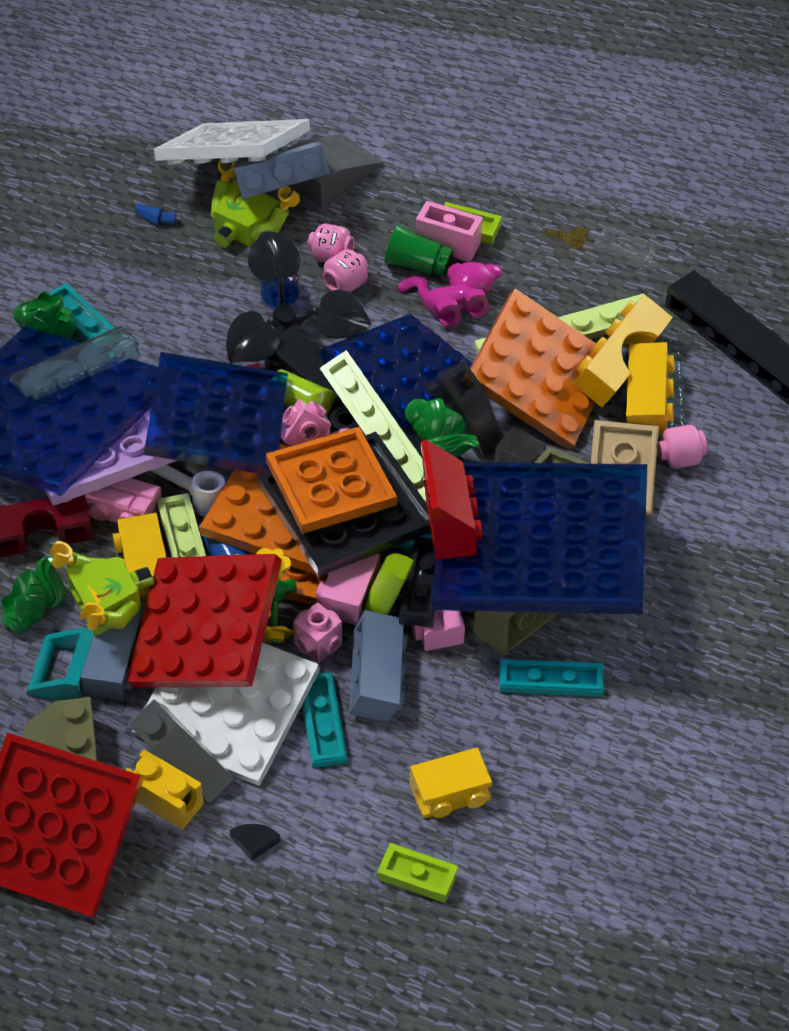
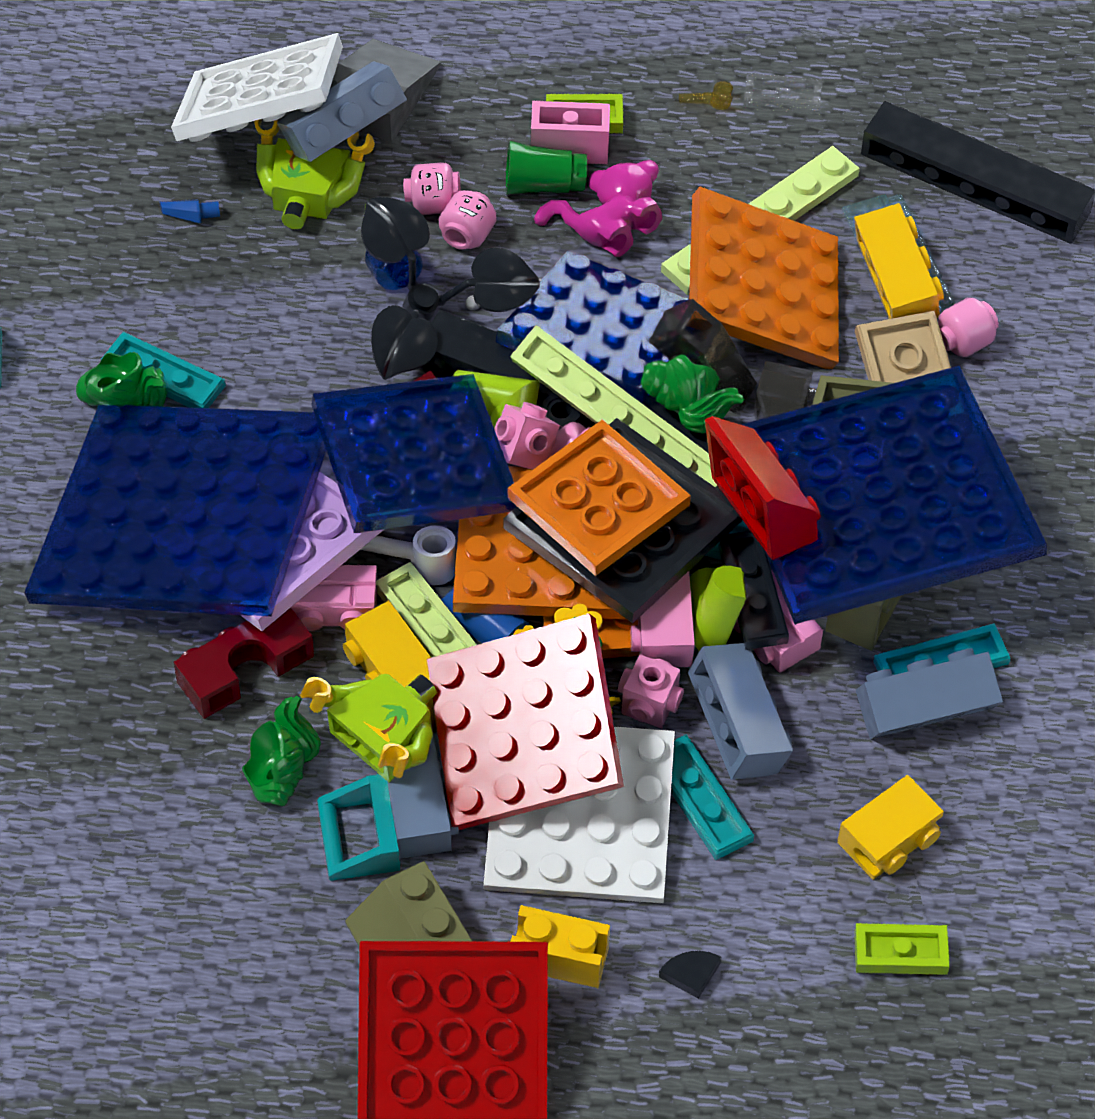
camera: 20 degrees left, 5 degrees up
(70, 364) = (196, 439): clear light blue windscreen -> none
(181, 749) = (563, 890): dark grey slope -> none
(524, 696) = (928, 693): none -> sand blue brick
(606, 371) = (841, 260): yellow arch -> none

